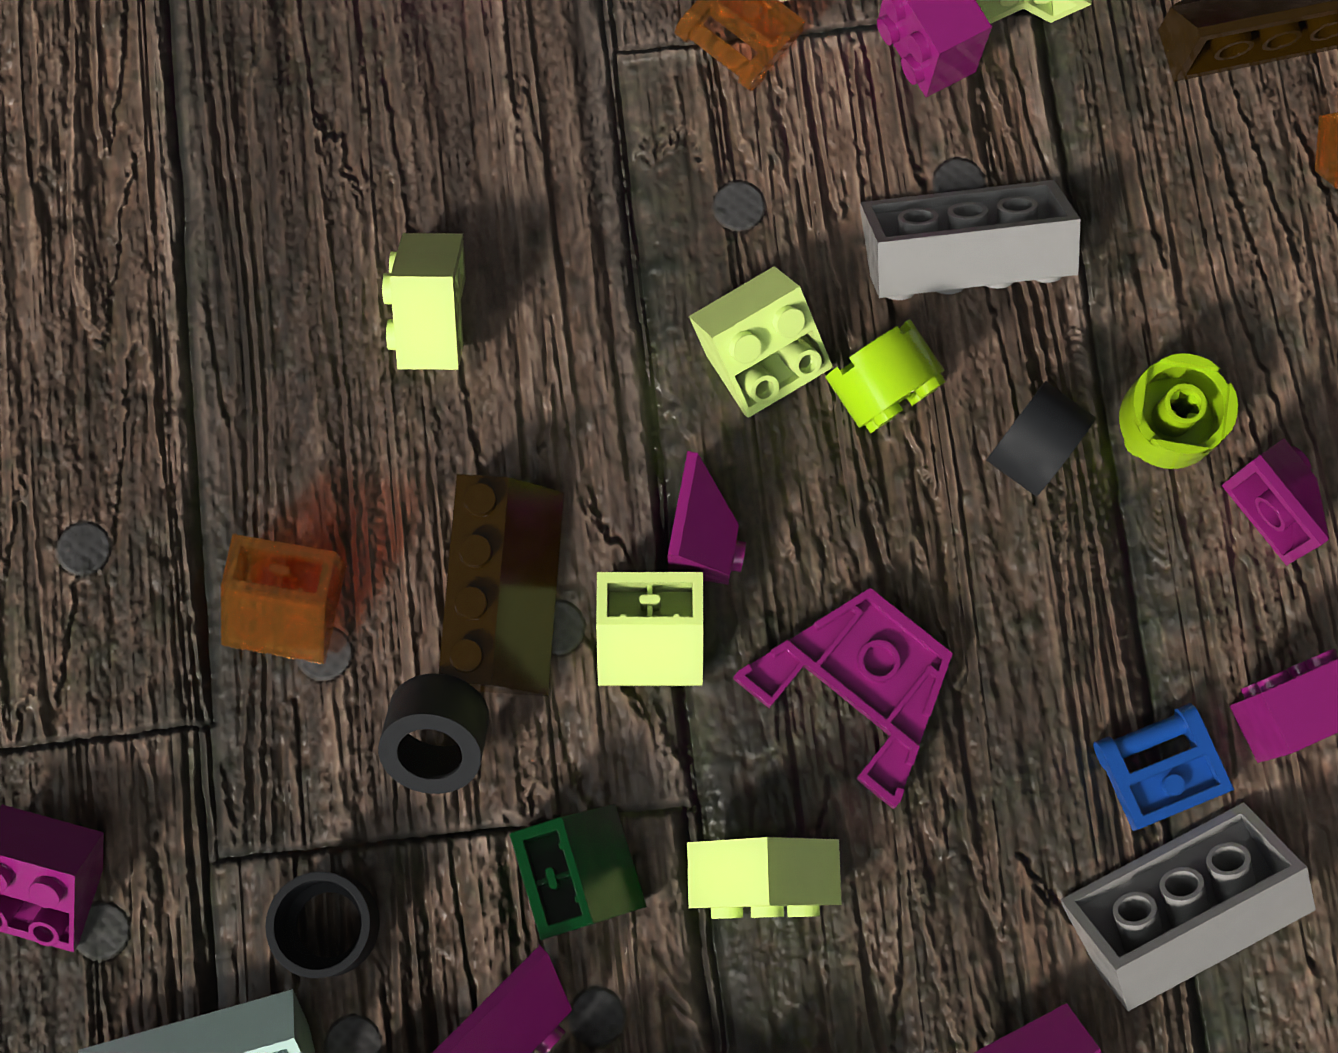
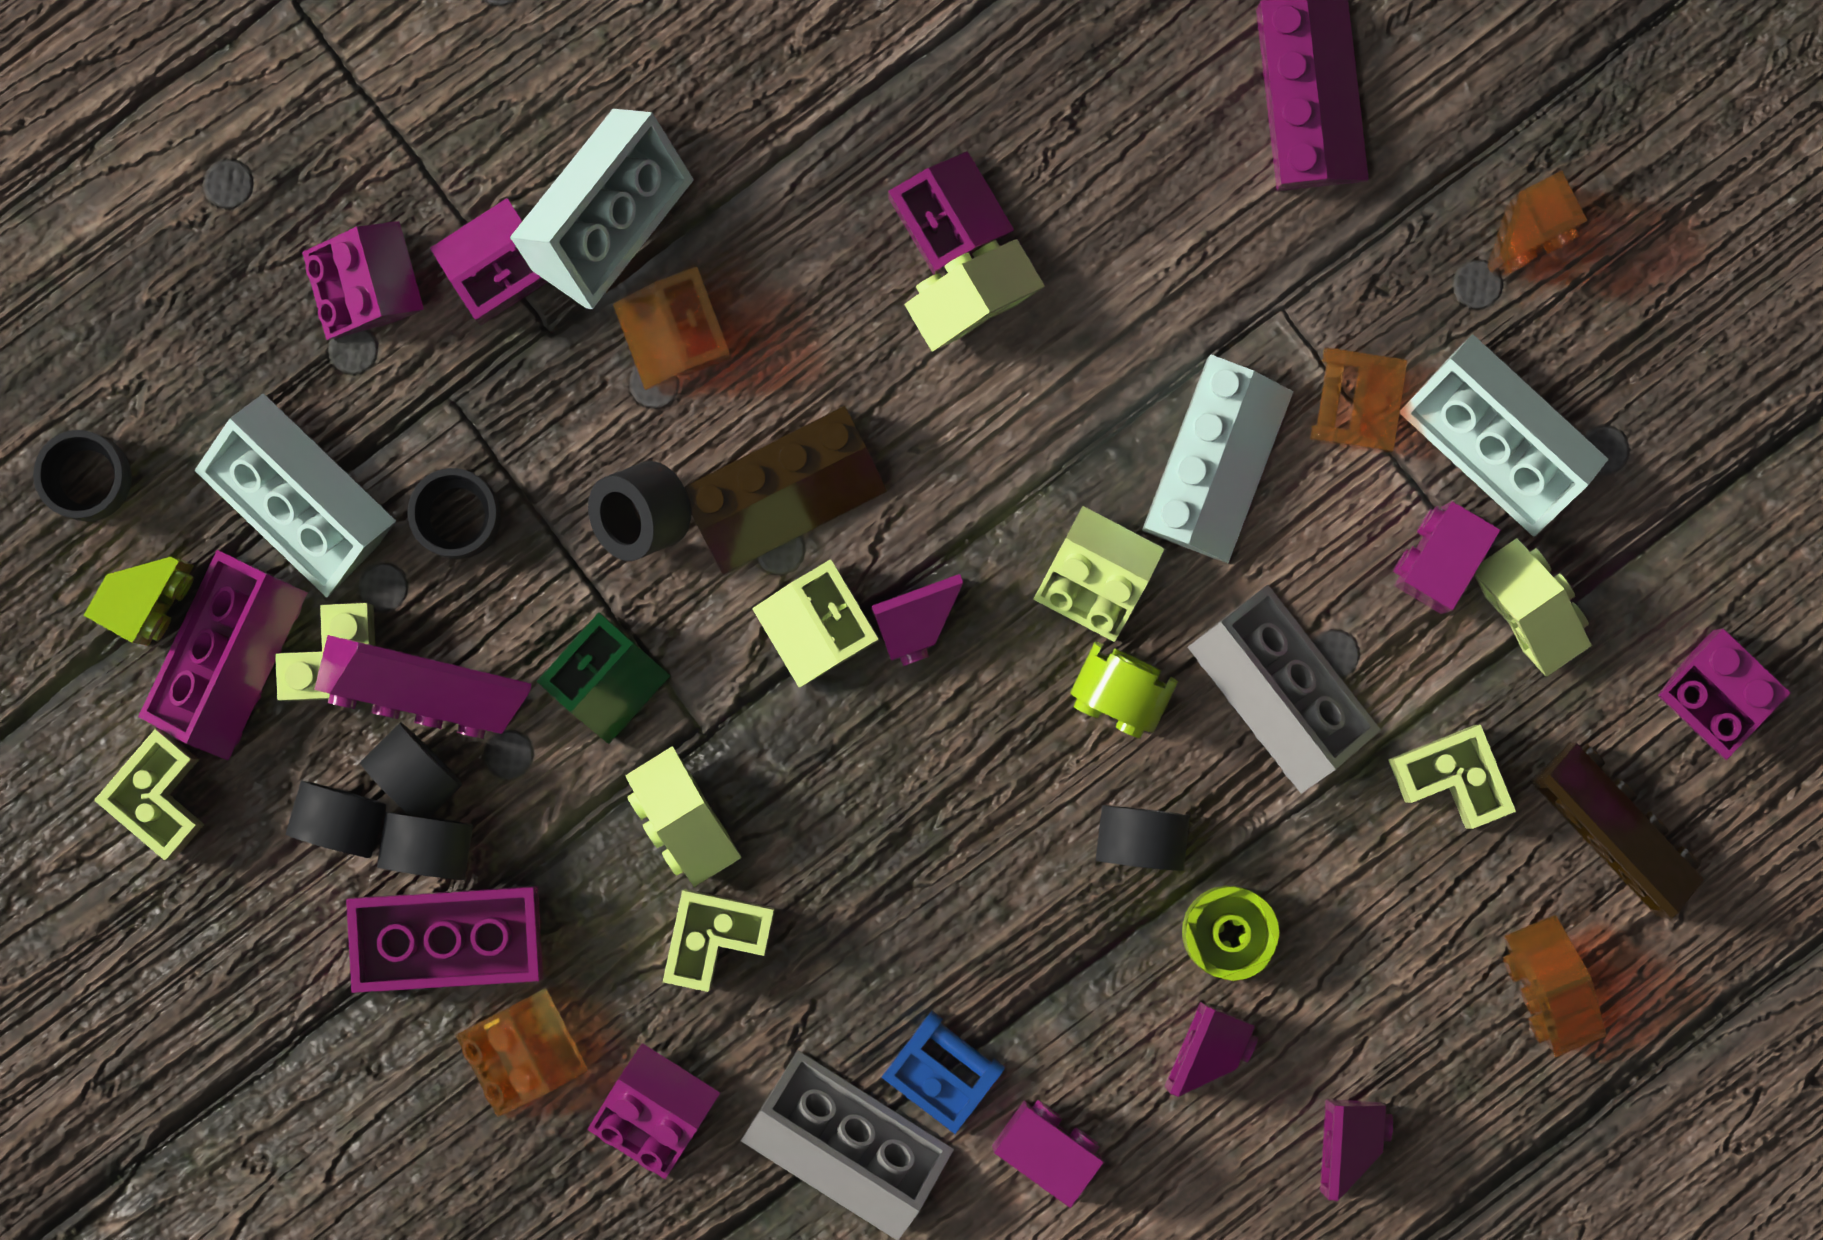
camera: 55 degrees right, 10 degrees up
(106, 734) = (487, 264): none -> magenta slope
(117, 592) = (603, 206): none -> light aqua slope
(336, 283) = (949, 211): none -> magenta slope
(715, 178) = (1218, 459): none -> light aqua slope
(876, 665) = (892, 813): magenta wing -> none
(888, 916) = (704, 926): none -> yellowish green brick
(1140, 118) = (1465, 767): none -> yellowish green brick

